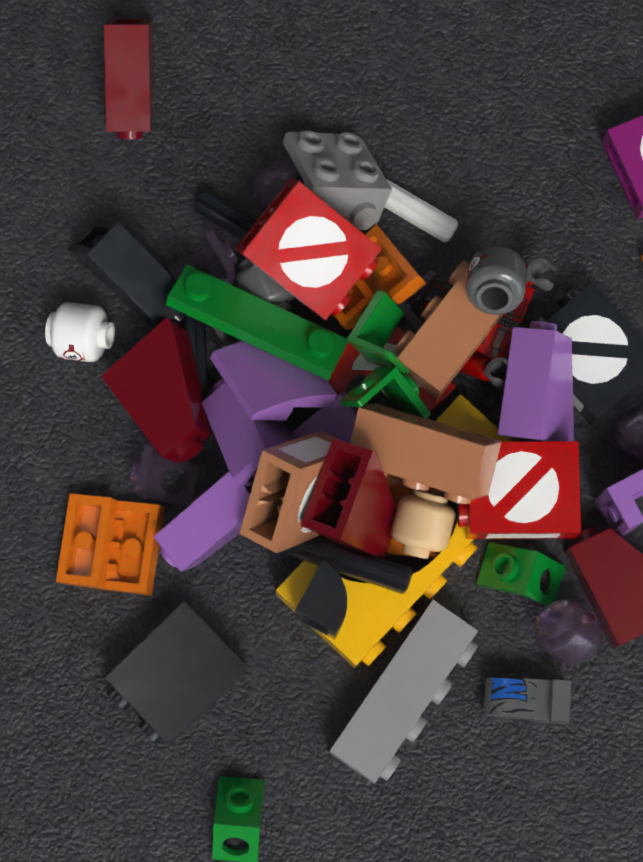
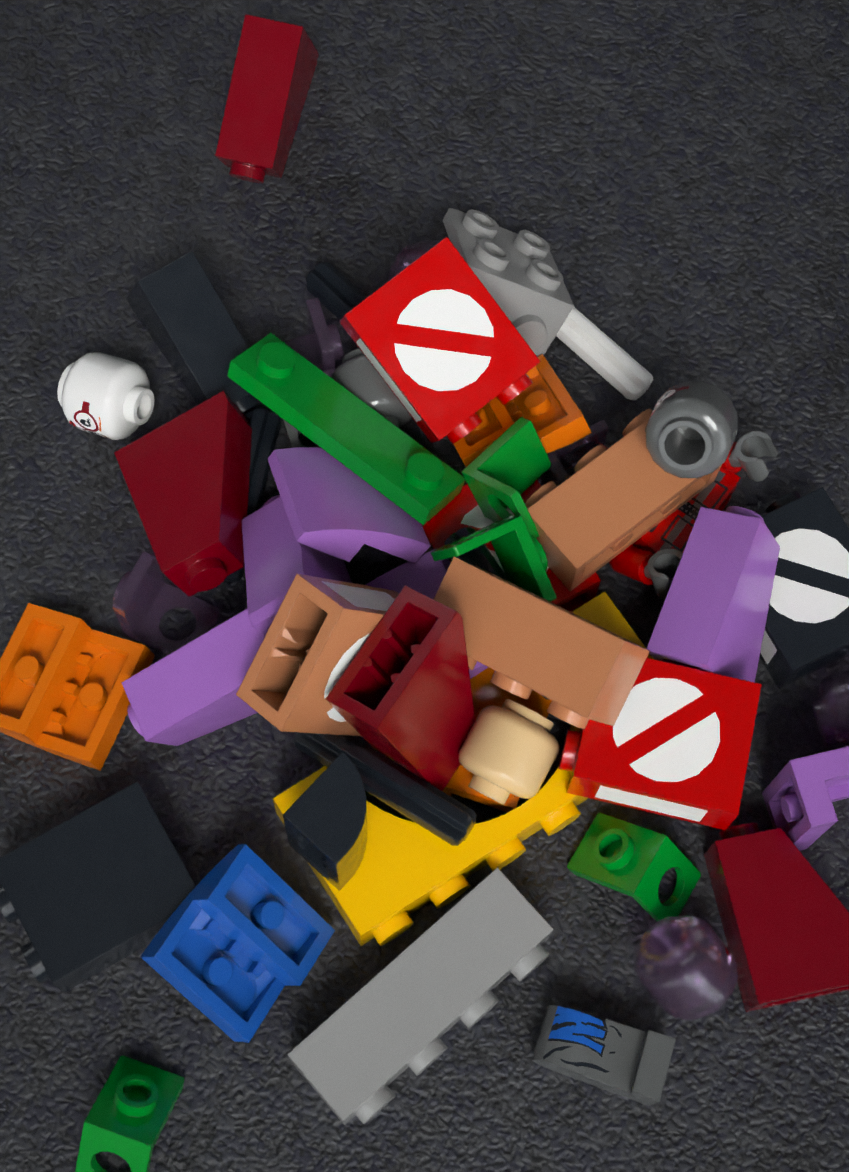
camera: 15 degrees right, 10 degrees down
(278, 688) = (238, 943): none -> blue slope

